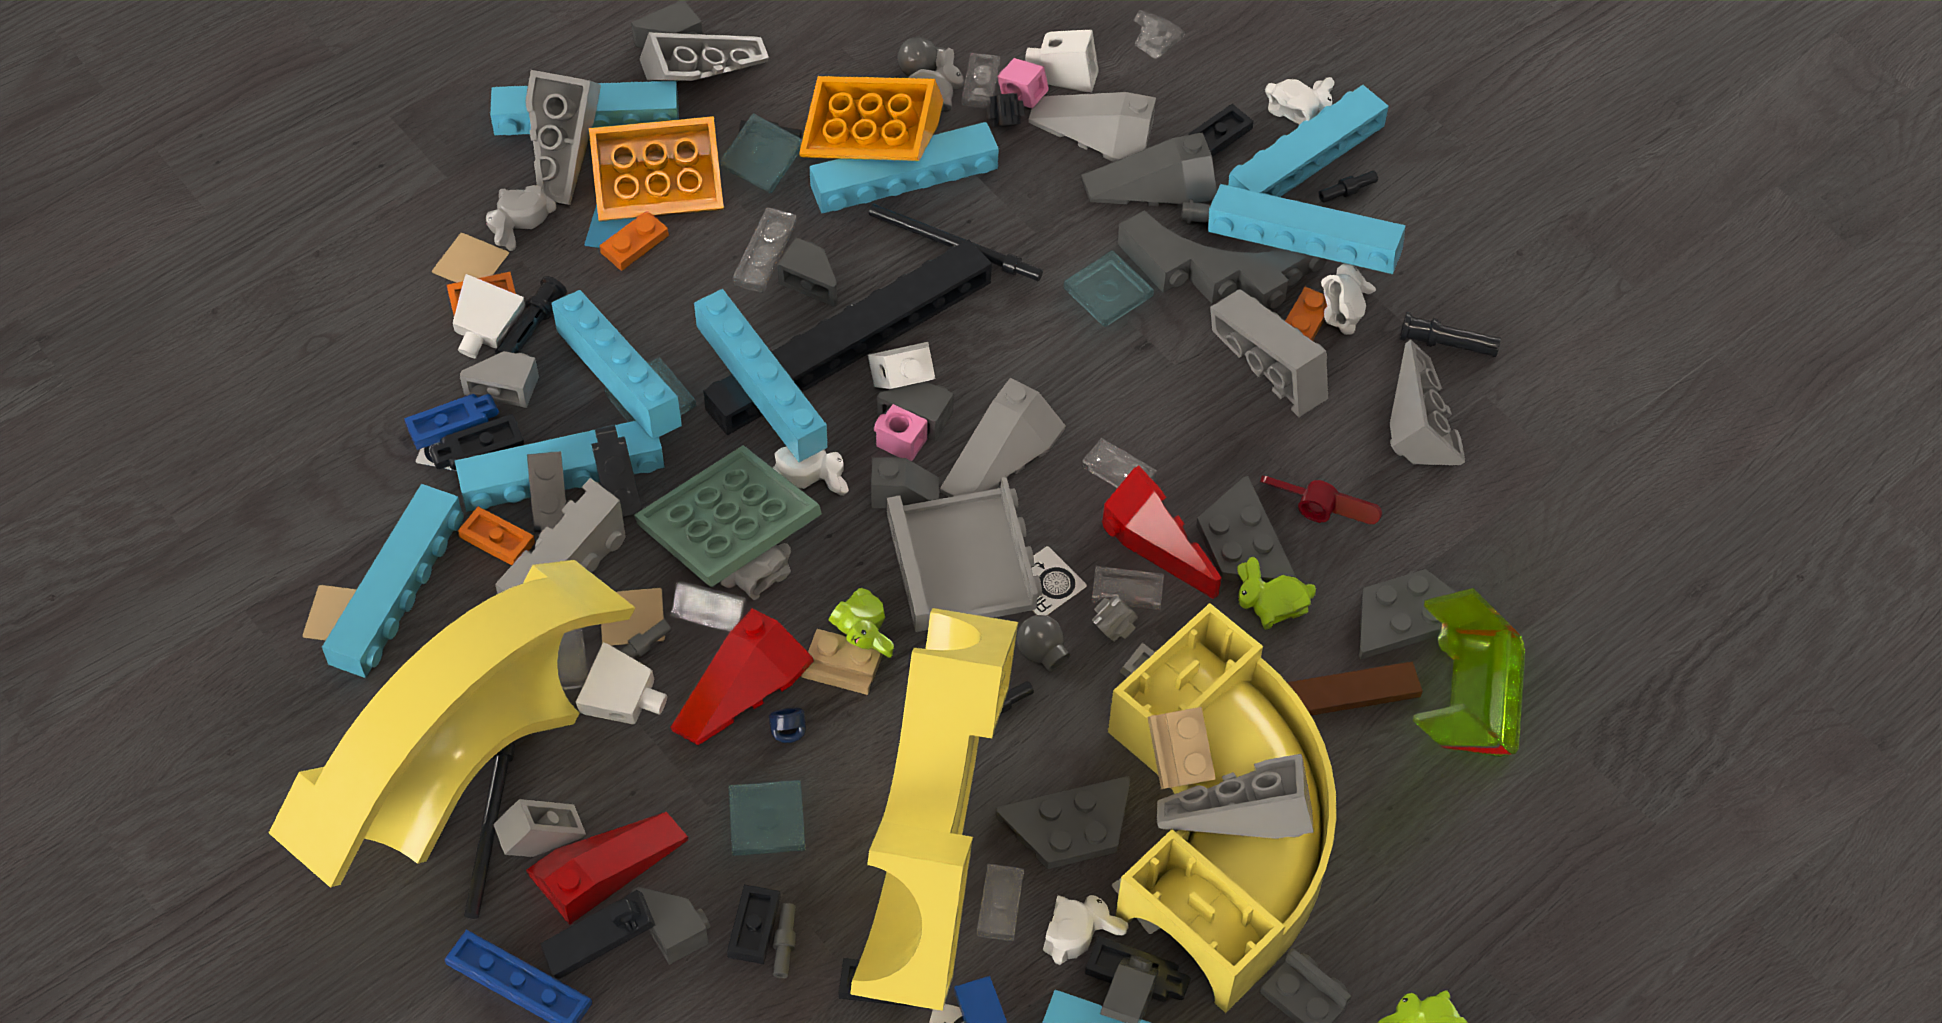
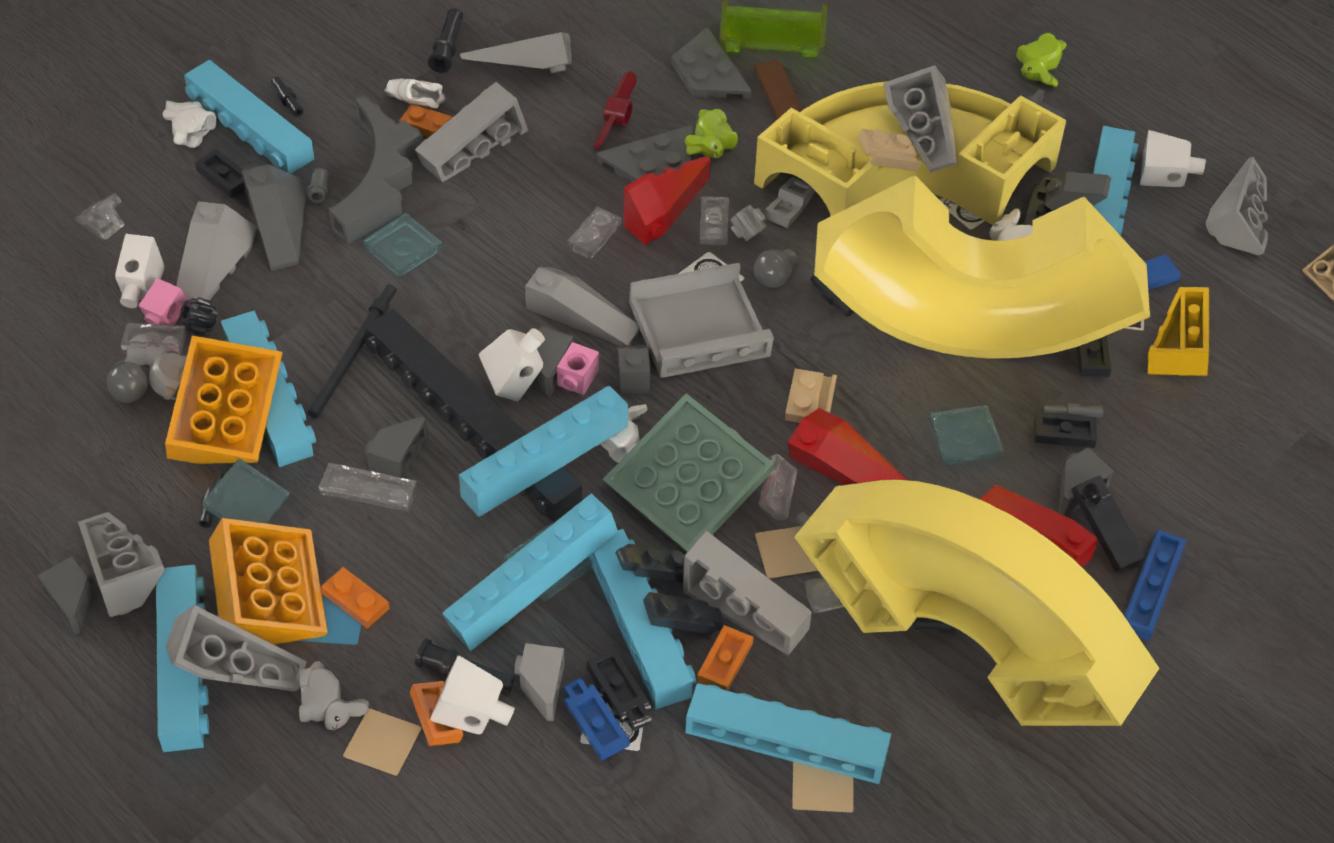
camera: 95 degrees left, 5 degrees down
(787, 719) = (879, 424): dark blue tile -> none
(860, 620) = (780, 376): lime animal -> none
(1306, 228) = (357, 102): medium azure brick -> none

